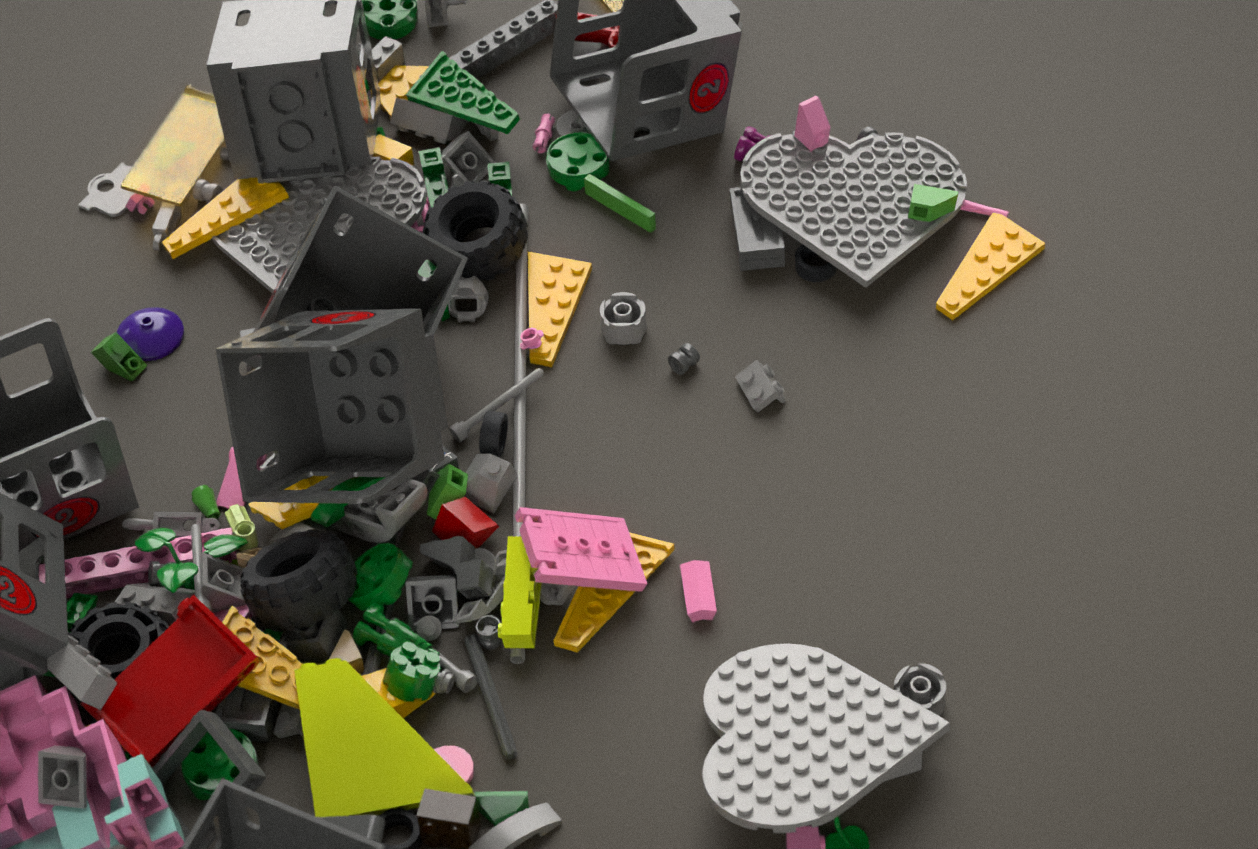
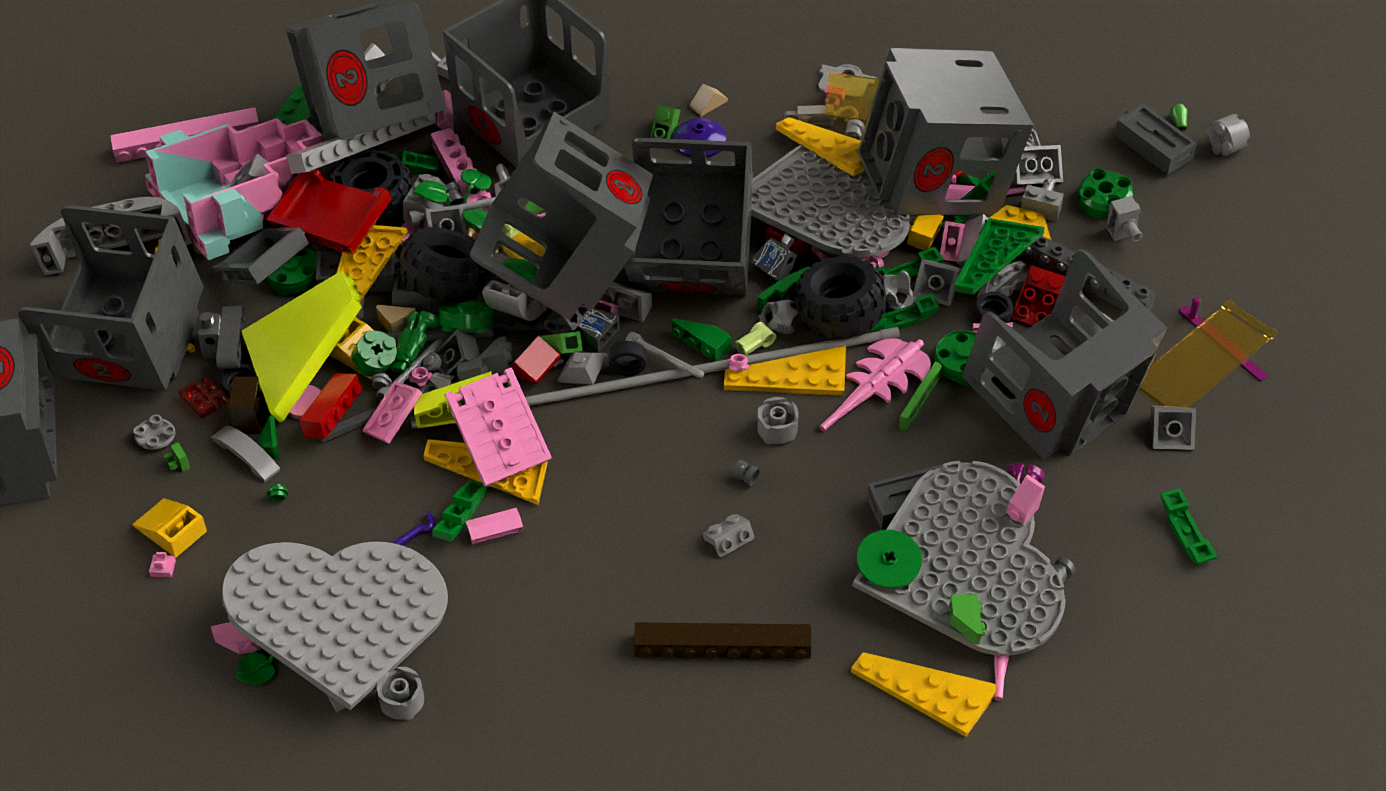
camera: 75 degrees right, 0 degrees up
(94, 317) = (707, 100): none -> tan slope
(408, 134) = (952, 240): none -> bright pink slope
(446, 638) = (420, 376): none -> bright pink plate
(477, 729) = (330, 405): none -> red brick
(479, 367) = (705, 338): none -> green slope
(493, 322) = (759, 336): none -> yellowish green piece
(509, 665) = (392, 412): none -> bright pink tile
(517, 87) = (1037, 296): none -> red slope
(525, 137) = (994, 299): none -> black tyre
(565, 213) = (898, 359): none -> bright pink animal
(591, 803) = (277, 492): none -> green plate
(668, 620) = (463, 506): none -> green slope
(683, 670) = (417, 530): none -> dark purple piece
(842, 48) = (1185, 528): none -> green slope
(849, 245) = (896, 572): none -> green piece
(900, 410) = (722, 640): none -> dark brown brick

